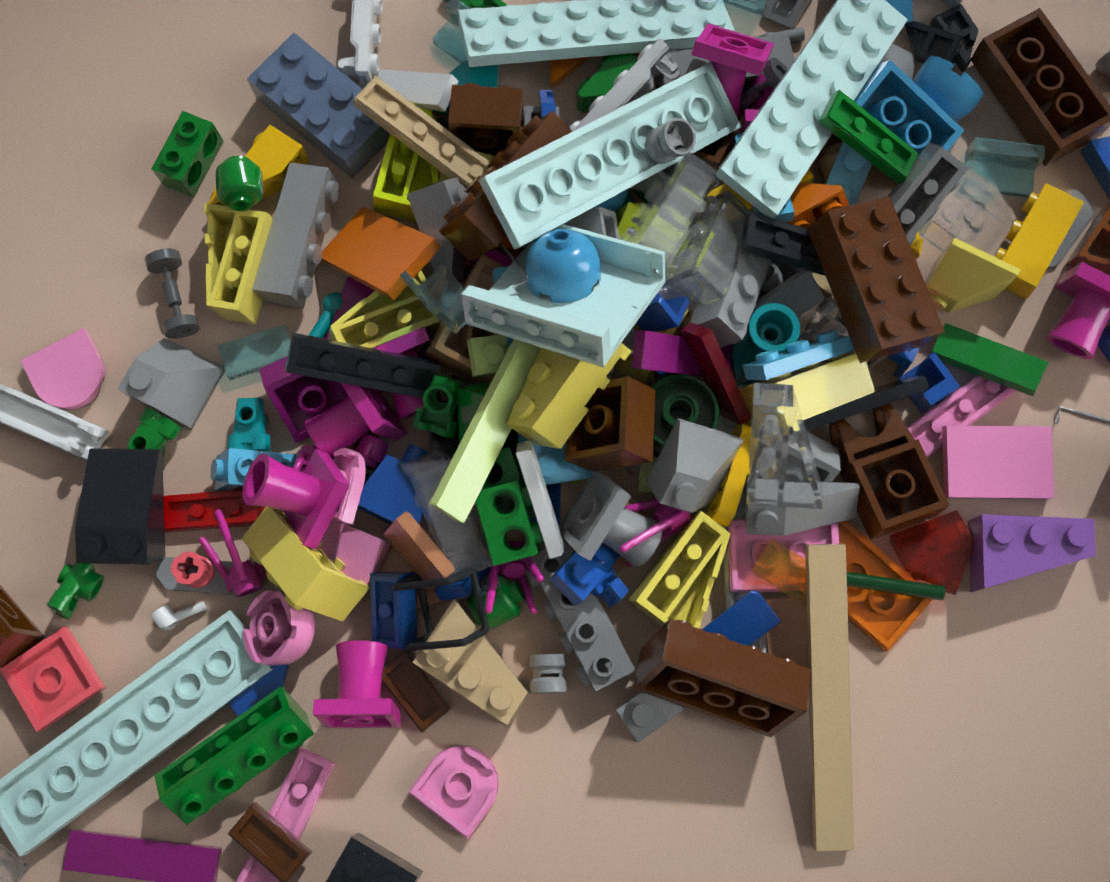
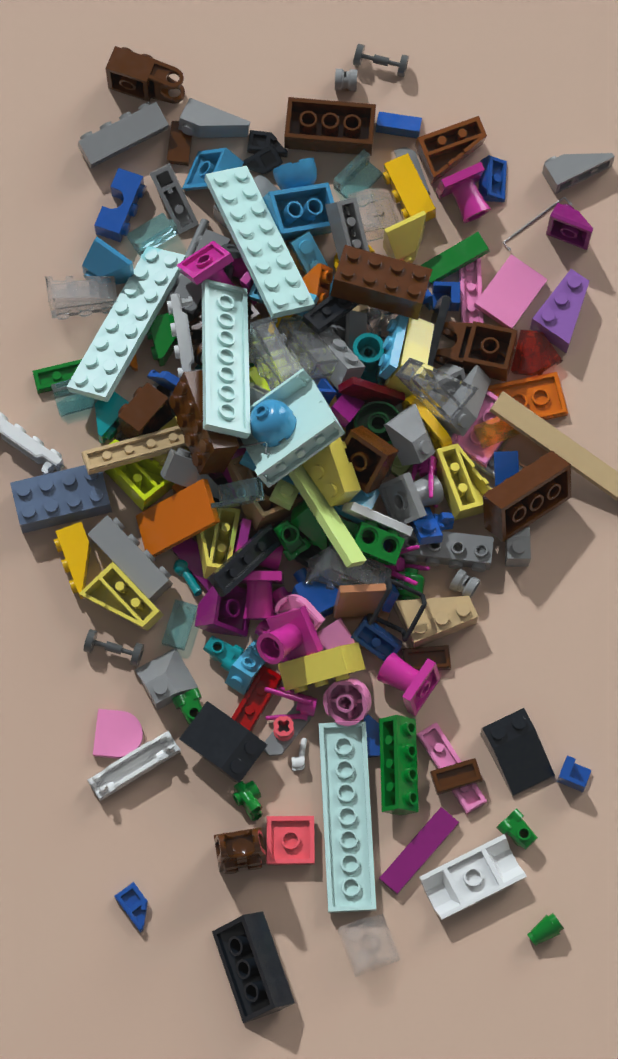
camera: 60 degrees left, 5 degrees down
(187, 154) = (36, 588): green brick -> none
(239, 183) = (86, 564): green head -> none
(422, 89) = (98, 435): white tile -> none
(458, 787) = (491, 668): bright pink tile -> none
(670, 140) = (239, 327): light grey wheel -> none
(868, 137) = (302, 231): green tile -> none
(895, 586) = (539, 384): dark green bar -> none

